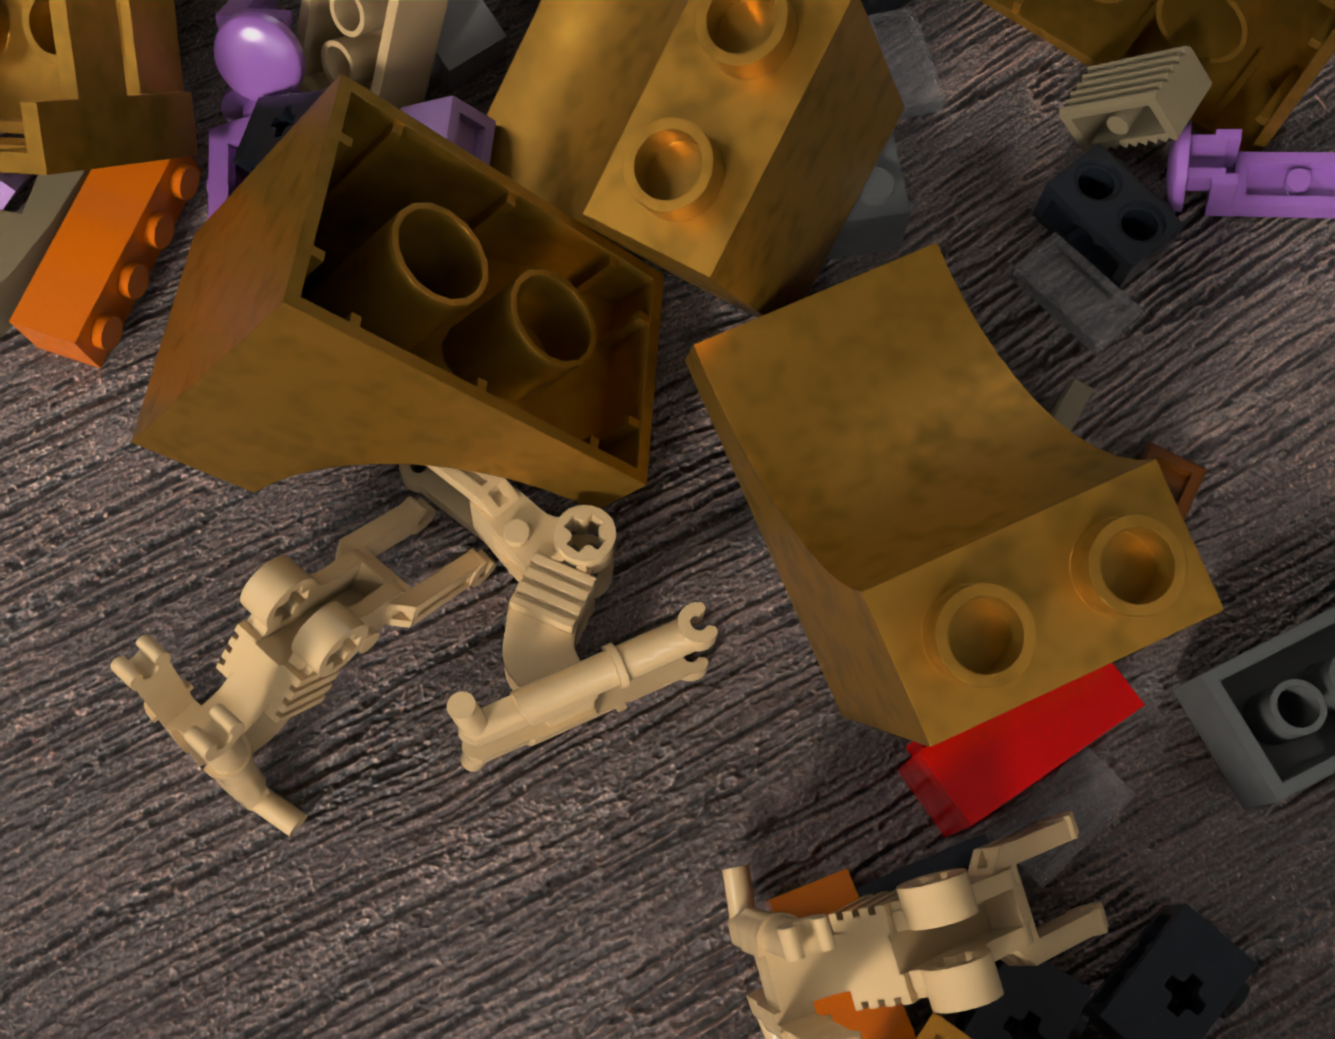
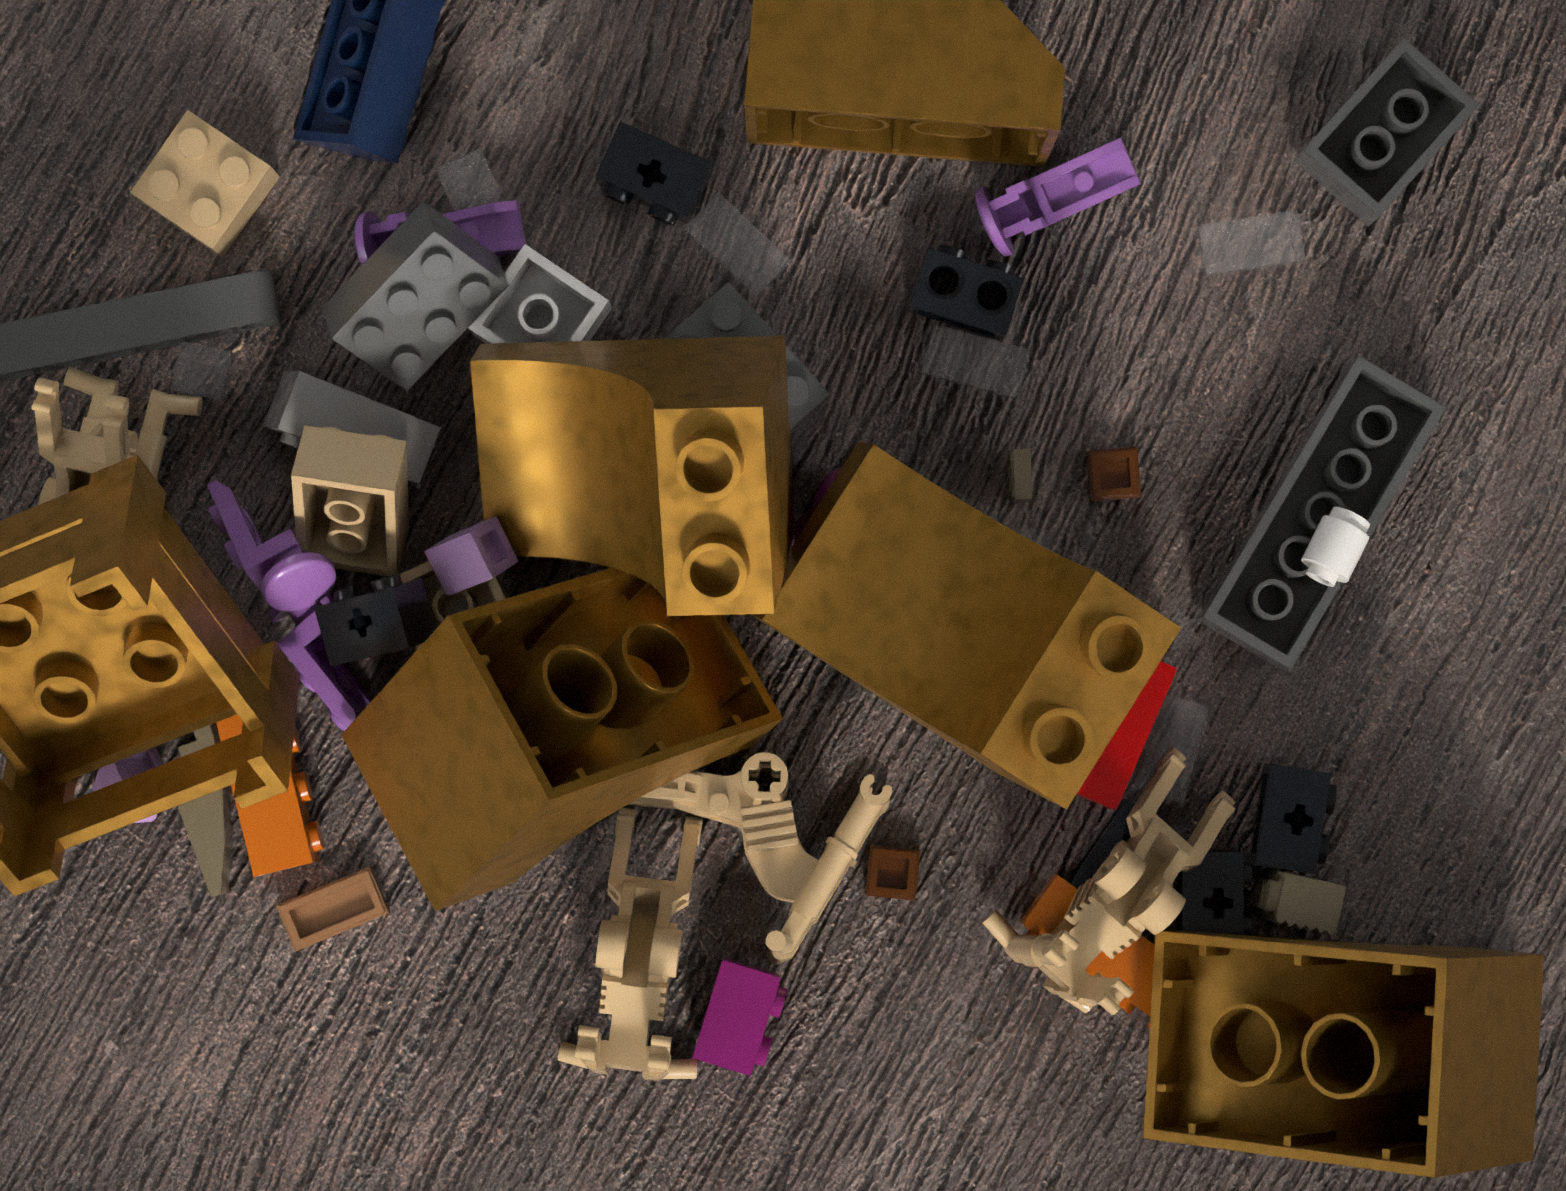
camera: 35 degrees left, 15 degrees up
(72, 417) = (333, 908): none -> medium nougat tile
(377, 793) = (738, 1017): none -> magenta brick
(658, 750) = (892, 872): none -> reddish brown tile
(1136, 99) = (933, 192): dark tan brick -> none

